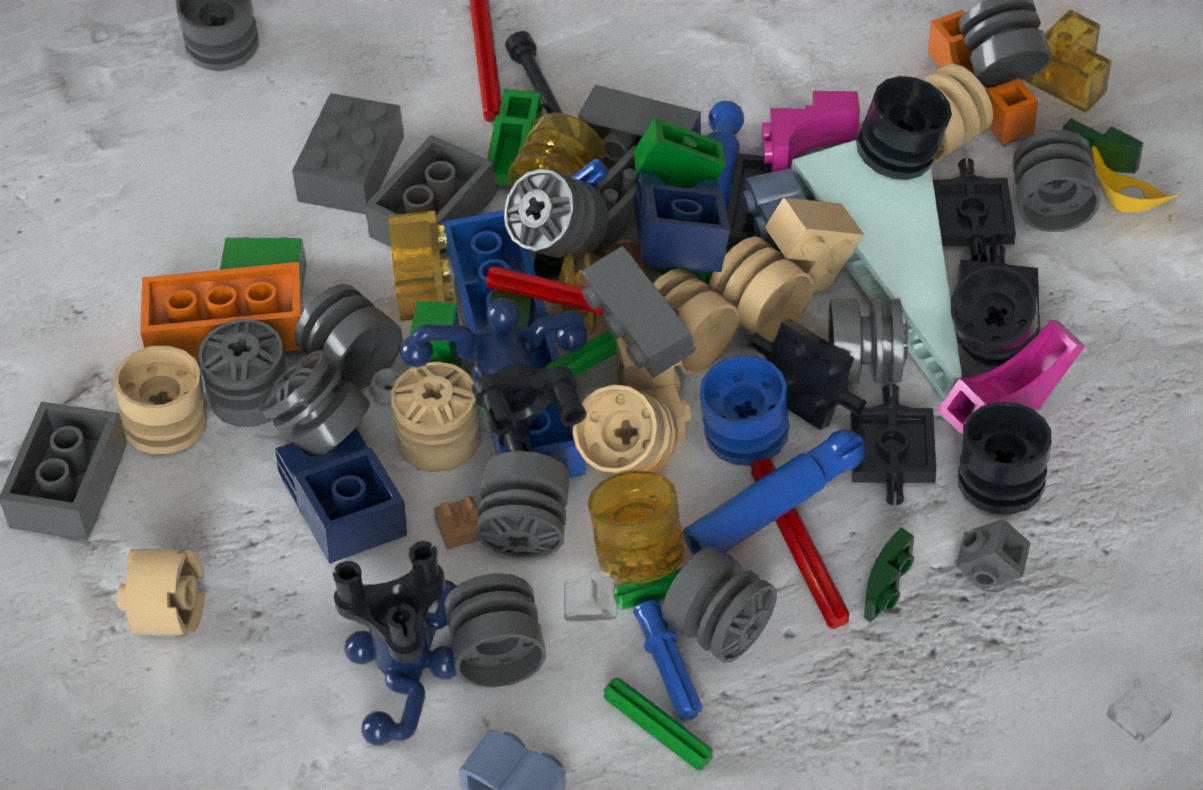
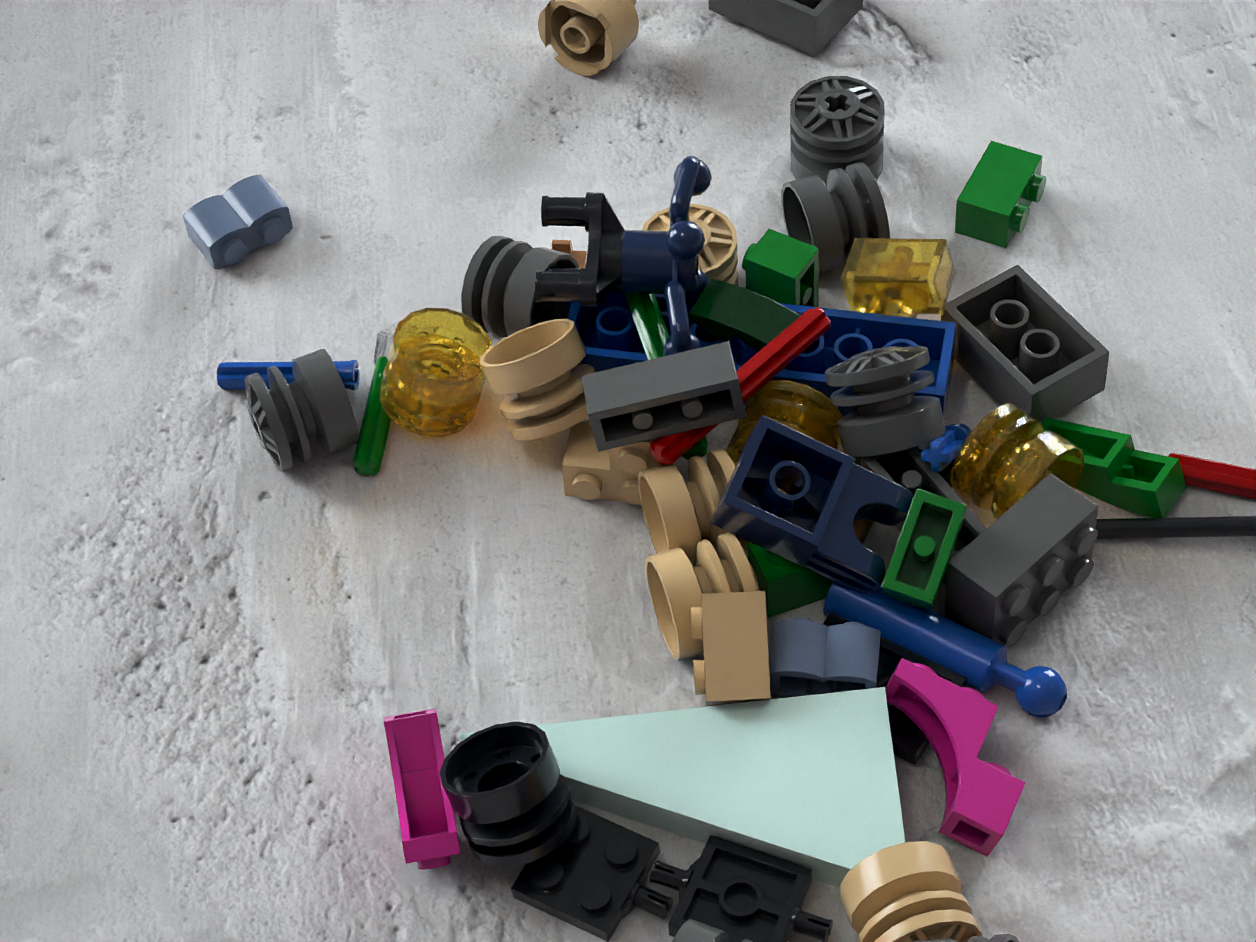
camera: 115 degrees right, 0 degrees up
(160, 399) = (830, 43): tan wheel -> none
(188, 306) = (934, 134): orange slope -> none
(314, 405) = (748, 151): dark grey wheel -> none
(344, 497) = (637, 166): dark blue brick -> none
(348, 153) = (1148, 302): dark grey brick -> none
(398, 634) = (421, 153): wheel -> none
(494, 630) = (387, 233): dark grey wheel -> none
(658, 723) = (228, 348): green axle -> none
(744, 409) = (536, 520): blue wheel -> none
(775, 493) = (405, 503): blue piece -> none
(807, 558) = (361, 534): red axle -> none
(812, 372) = (539, 596): black plate -> none
(870, 338) = (567, 664): dark grey wheel -> none
(885, 575) = (260, 582): dark green slope -> none
(897, 445) = (427, 662): black plate -> none
(903, 127) = (845, 772): black wheel -> none
(993, 554) = (213, 675): dark grey brick -> none
(1004, 458) = (321, 733): black wheel -> none

